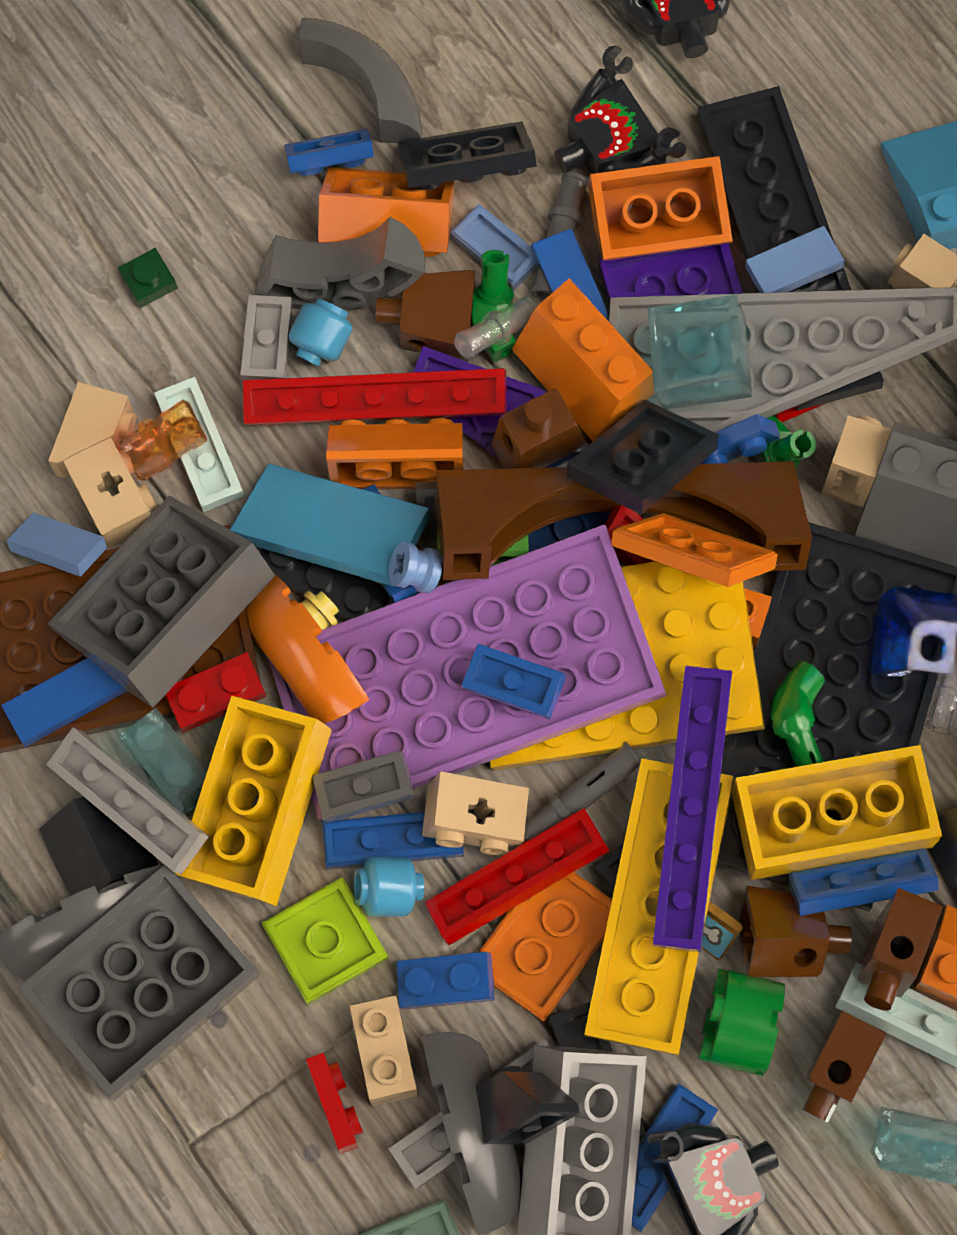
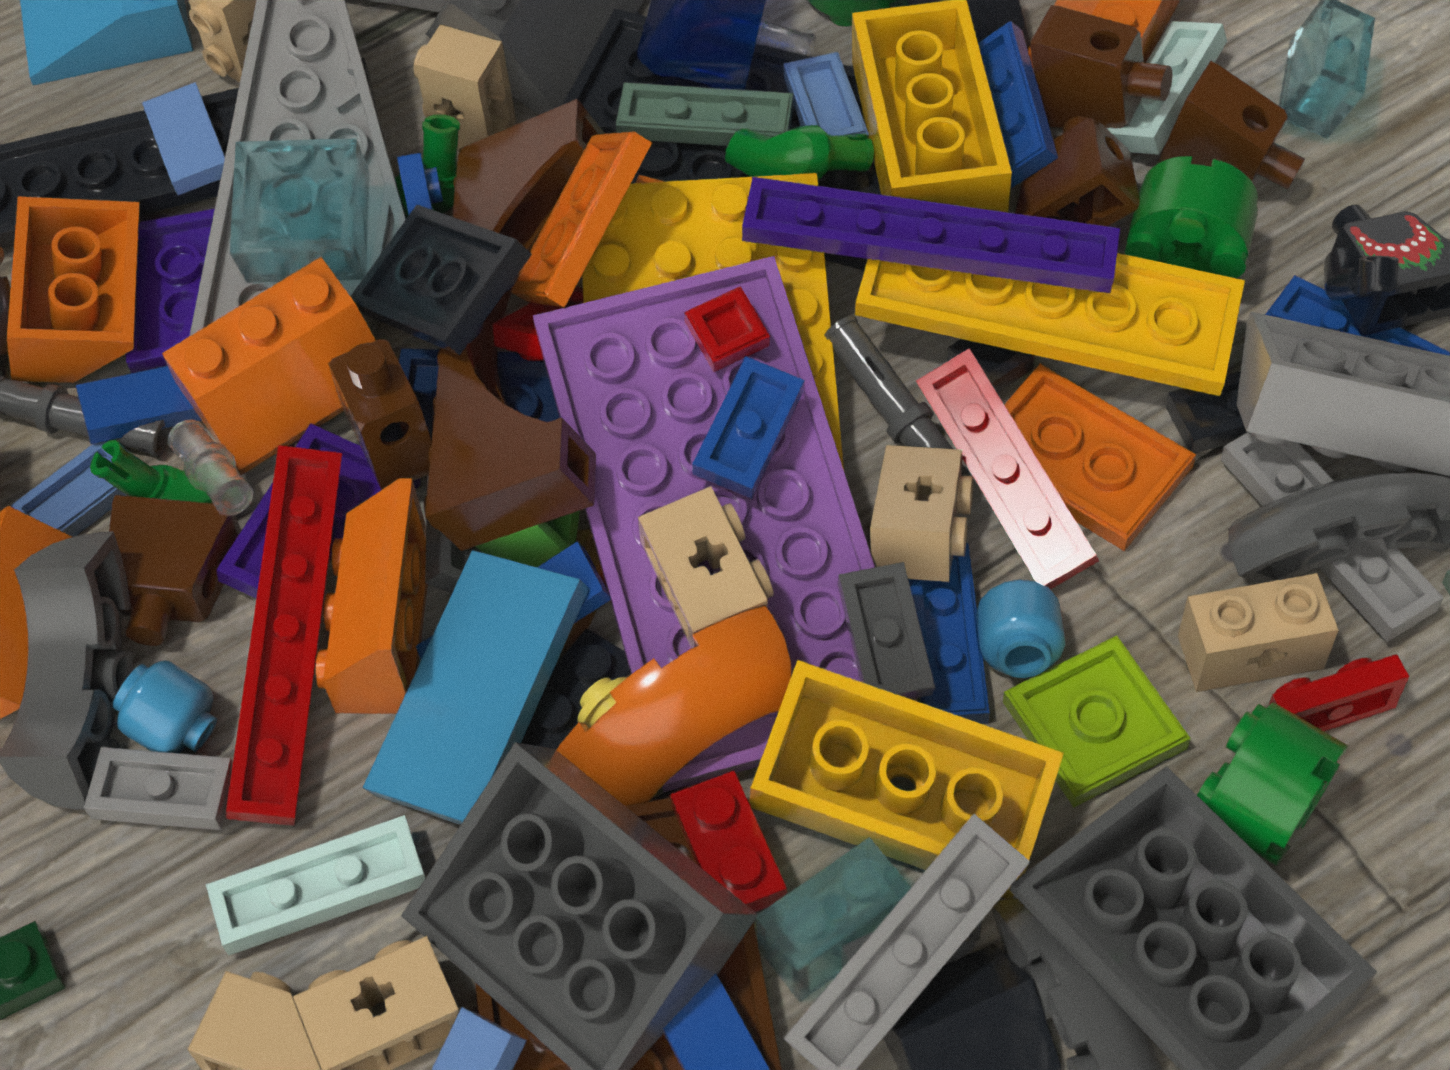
camera: 85 degrees left, 15 degrees down
(163, 440) = (314, 907): clear orange hips -> none
(257, 1045) = (1273, 778): none -> green brick
(379, 662) = (698, 531): none -> tan brick
(415, 567) = (574, 522): medium blue wheel -> none
(445, 980) = (1149, 562): blue plate -> none
(521, 1106) = (1340, 423): black slope -> none
(596, 661) = (727, 329): none -> red tile
(848, 646) = (701, 113): none -> sand green tile
(865, 734) = (824, 95): none -> medium blue tile

